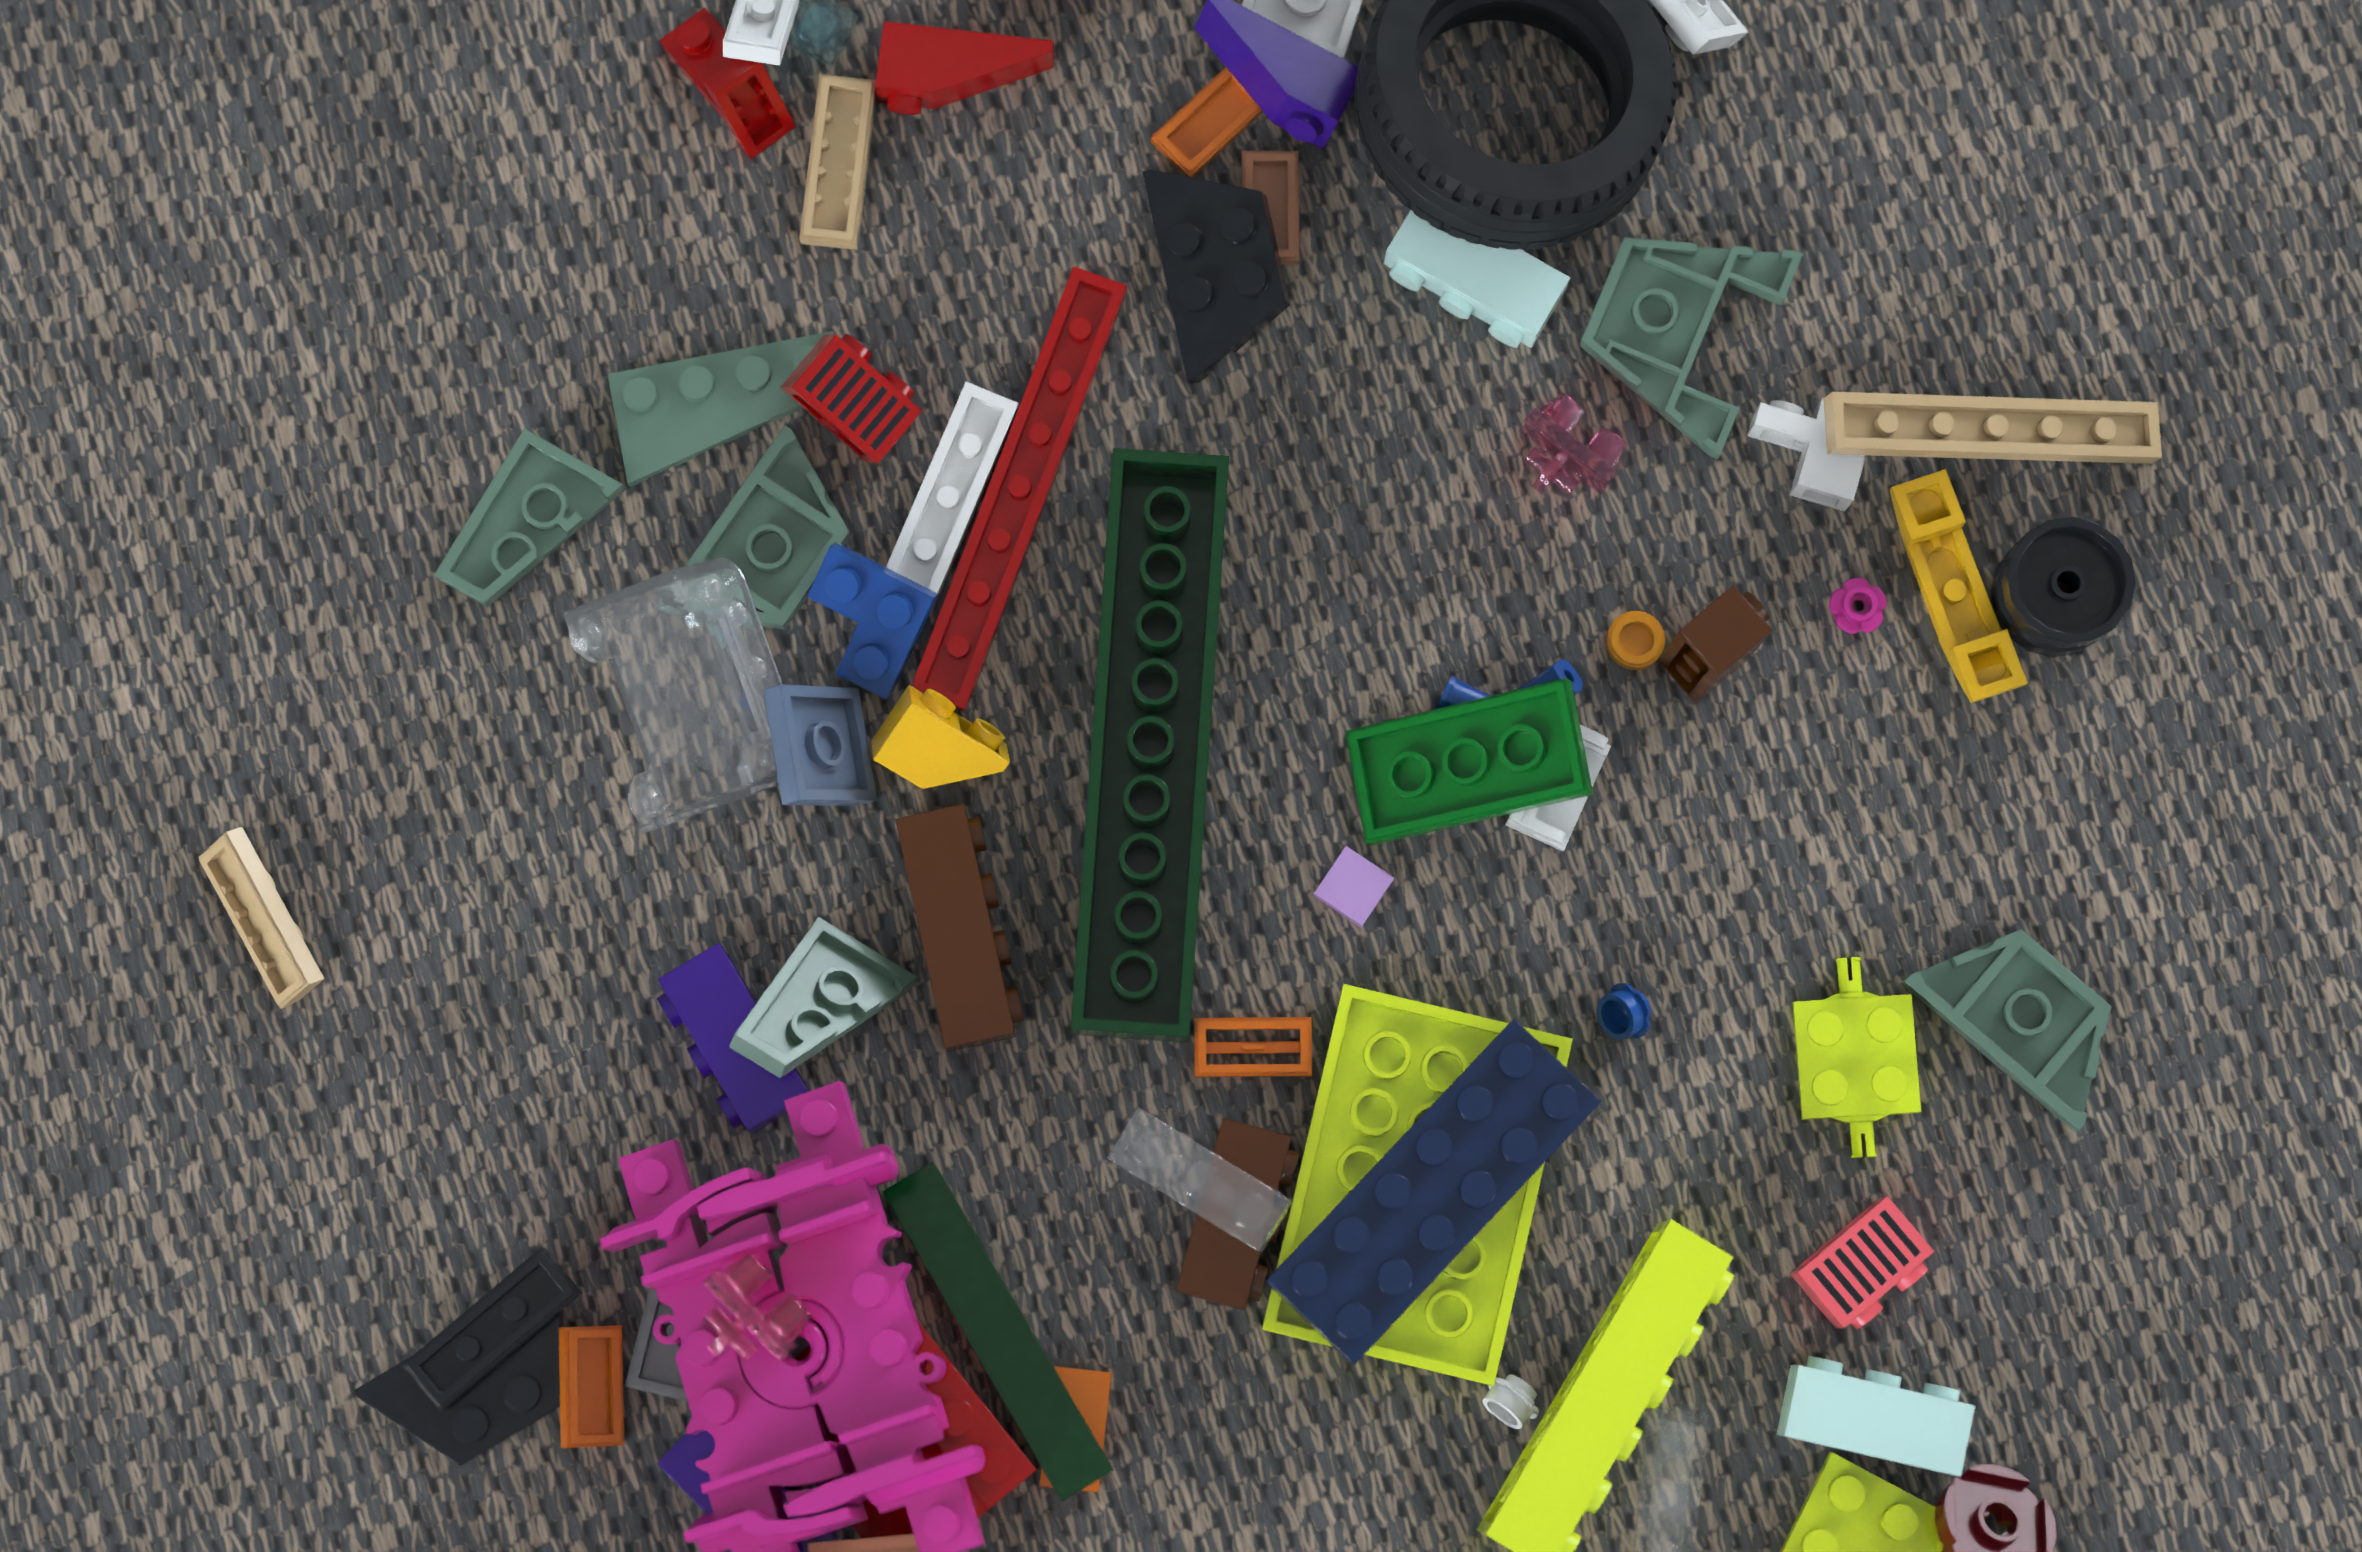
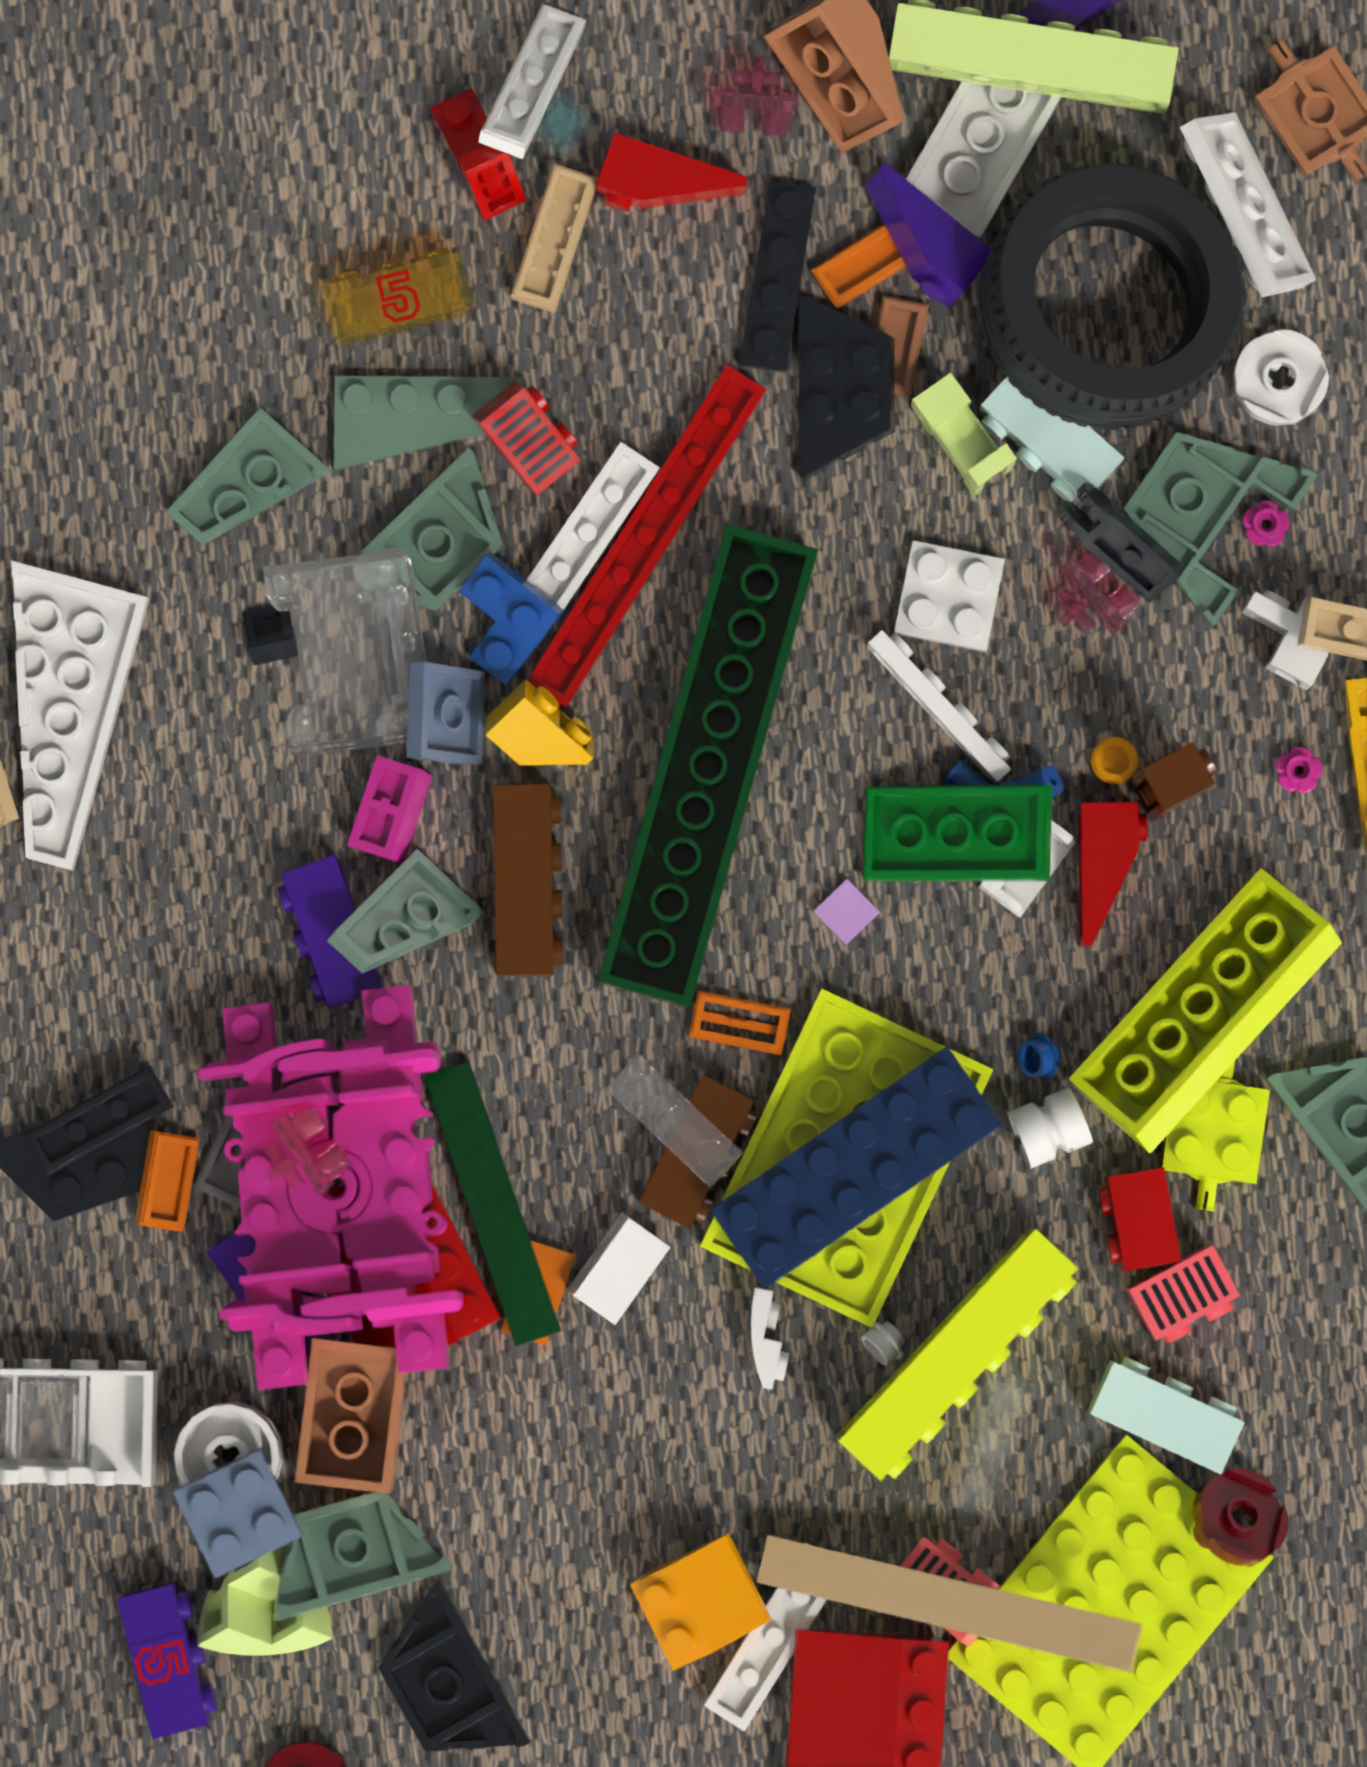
camera: 15 degrees right, 5 degrees up
(357, 802) = (70, 682): none -> white wing
(589, 697) = (269, 635): none -> black slope
(665, 266) = (397, 297): none -> clear yellow brick
(776, 876) = (390, 810): none -> dark pink hinge
(1112, 154) = (777, 276): none -> black plate
(1168, 1377) = (618, 1268): none -> white hinge
(1350, 276) = (947, 417): none -> yellowish green piece
(1372, 1444) = (767, 1352): none -> white slope
(1395, 603) = (926, 690): none -> white plate
(1396, 486) = (949, 596): none -> white plate
(1589, 379) = (1120, 543): none -> black hinge
(1650, 747) = (1106, 849): none -> red slope
(1657, 1094) = (1050, 1127): none -> white wheel
(1751, 340) = (1253, 522): none -> dark pink plate
(1760, 137) = (1305, 367): none -> white plate
(1791, 1184) = (1140, 1219): none -> red brick
(1814, 913) = (1205, 1010): none -> neon yellow brick

